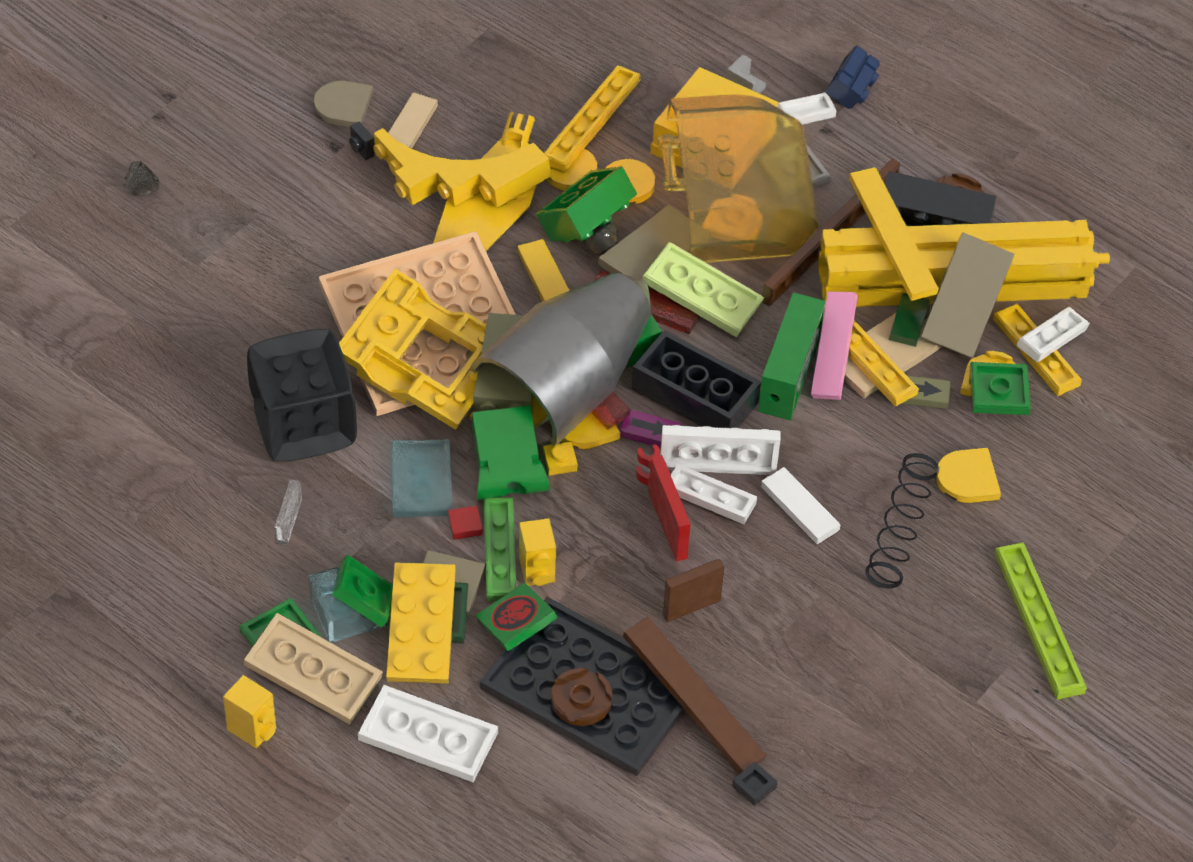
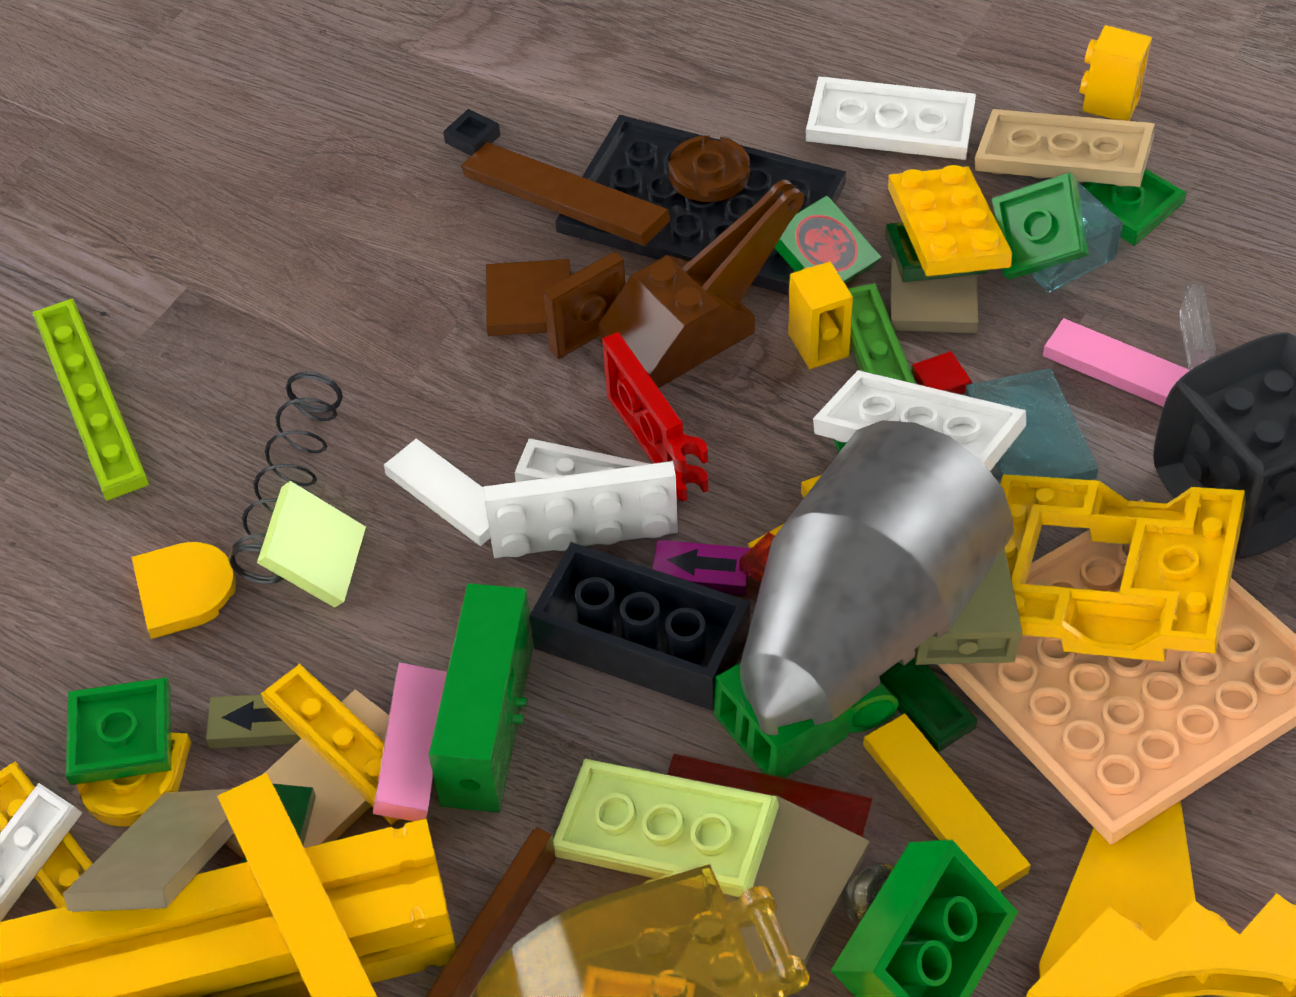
camera: 175 degrees right, 0 degrees up
(340, 504) = (1113, 361): none -> bright pink tile
(504, 435) = (976, 424): none -> white plate
(617, 586) = (692, 310): none -> reddish brown slope
(729, 636) = (517, 297): none -> reddish brown tile
(887, 466) = (311, 544): none -> yellowish green tile

